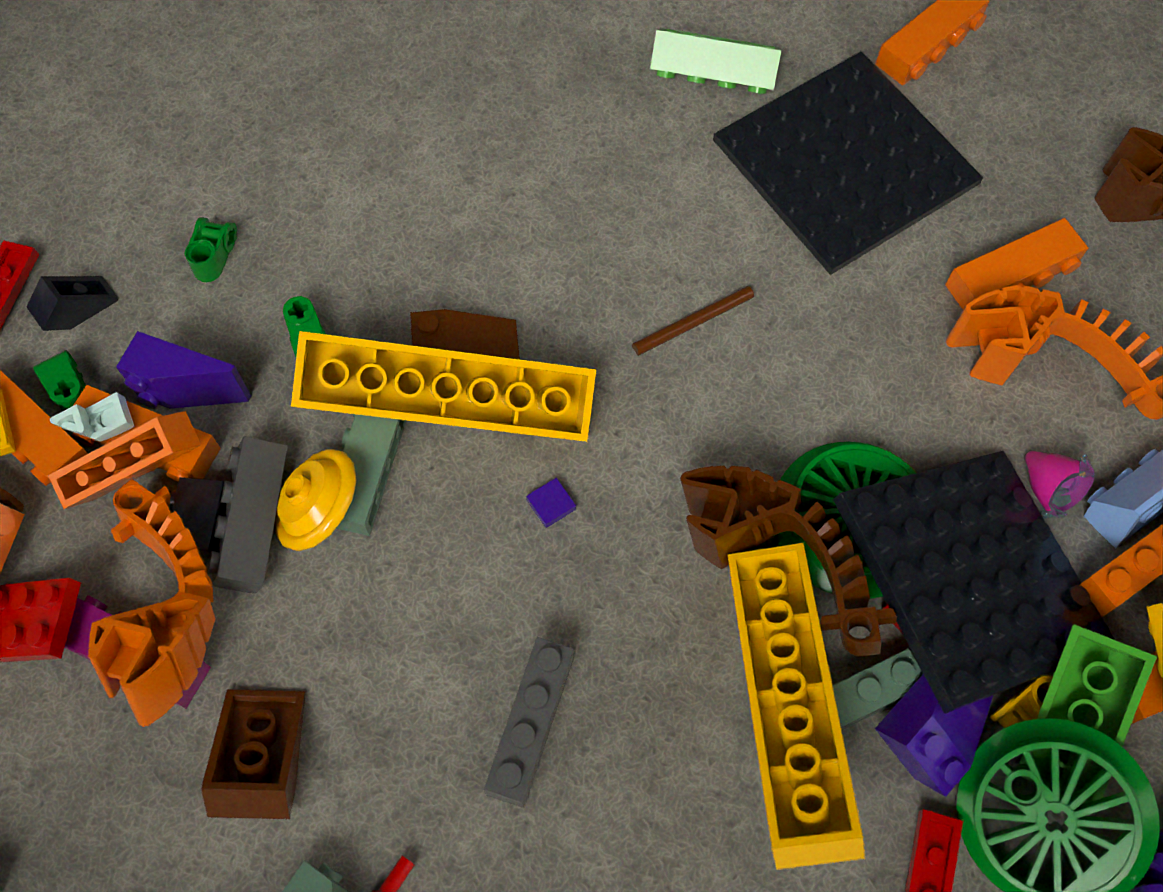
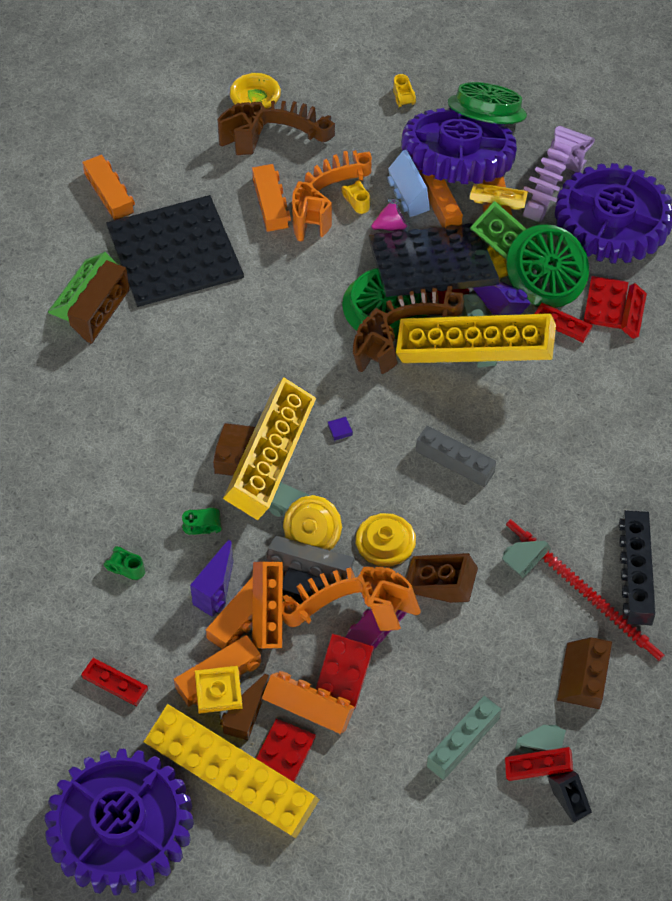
camera: 75 degrees left, 10 degrees down
(61, 379) = (193, 650): green piece -> none
(69, 300) = (139, 642): black slope -> none
(99, 420) = (233, 621): light aqua slope -> none
(330, 636) = (385, 539): none -> yellow piece
(686, 74) = (99, 301): none -> reddish brown slope
(693, 320) = (252, 343): reddish brown bar -> none
(1086, 407) = (357, 197): none -> yellow piece

